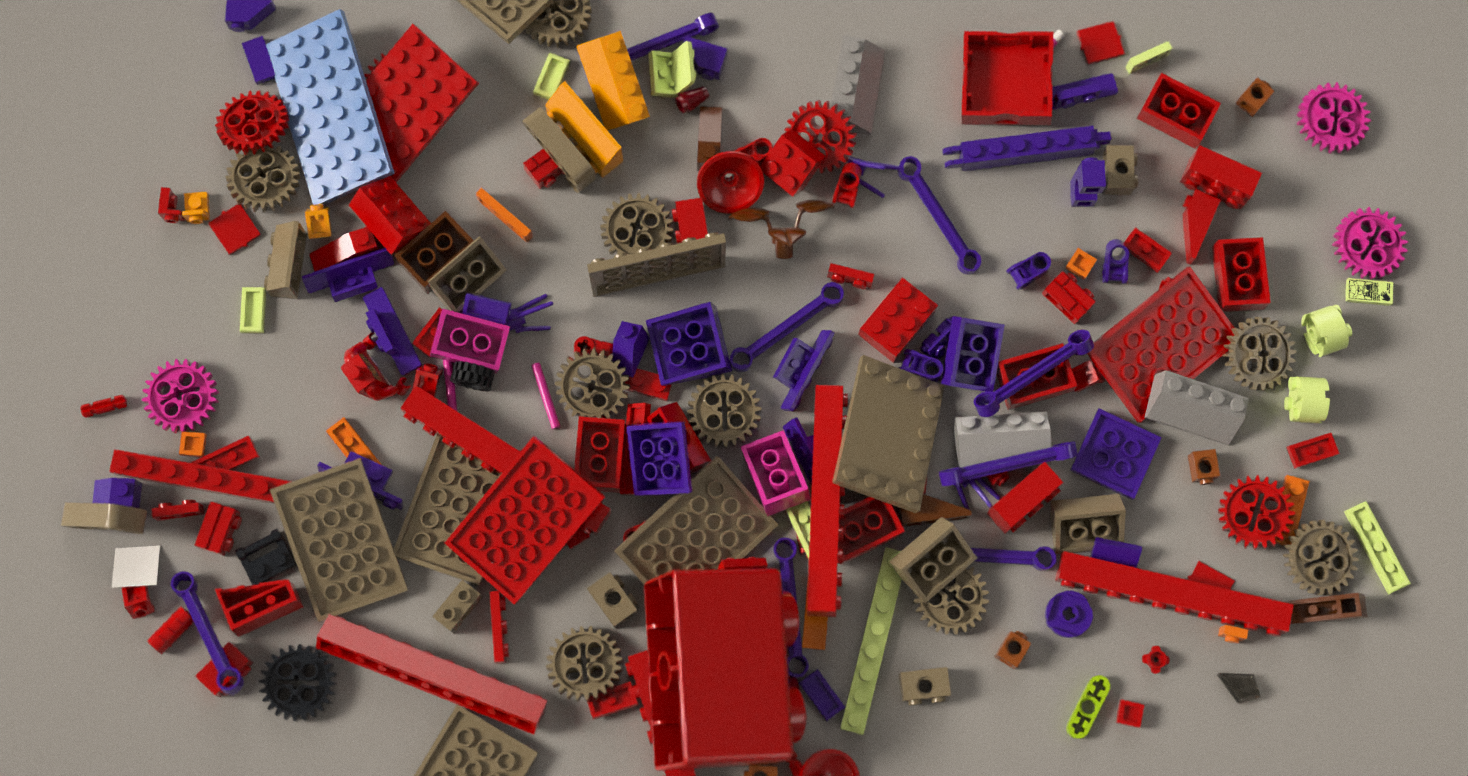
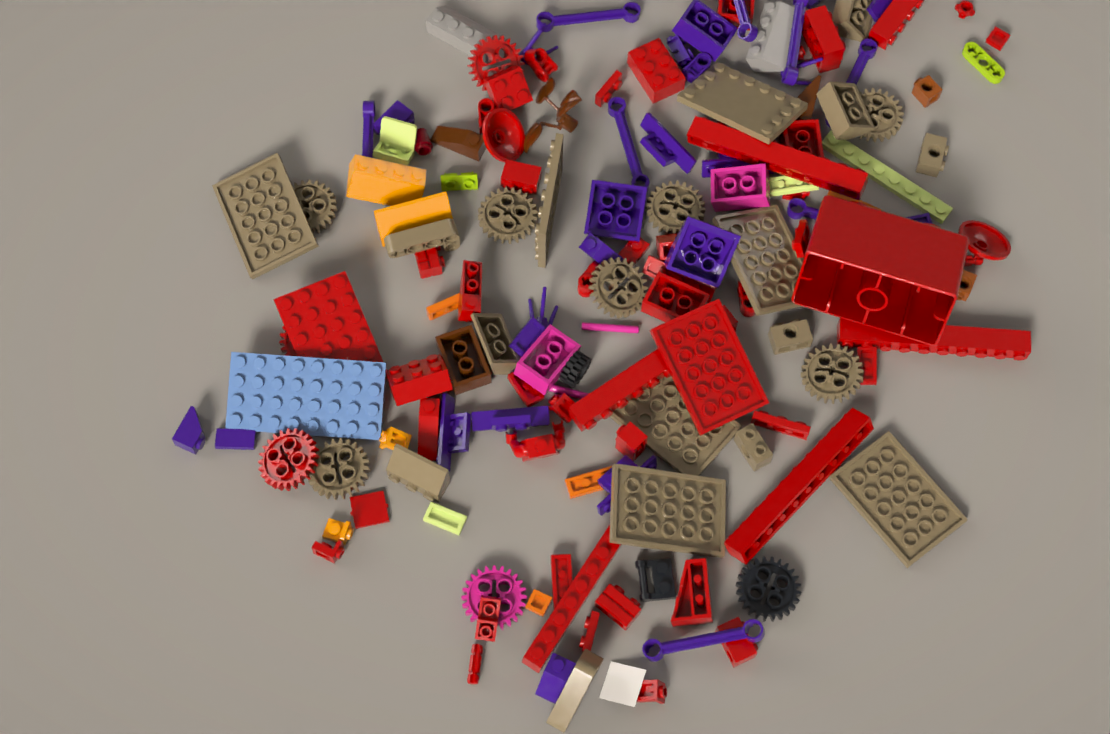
camera: 65 degrees left, 10 degrees down
(149, 398) = (488, 618): none -> red slope
(170, 630) = (687, 673): red axle -> none
(407, 468) = (631, 441): none -> red brick
(515, 224) = (470, 290): none -> red slope
(551, 76) = (356, 232): yellowish green tile -> none
(654, 150) = (456, 182): none -> lime hinge
(1080, 608) = (910, 57): dark purple plate -> none

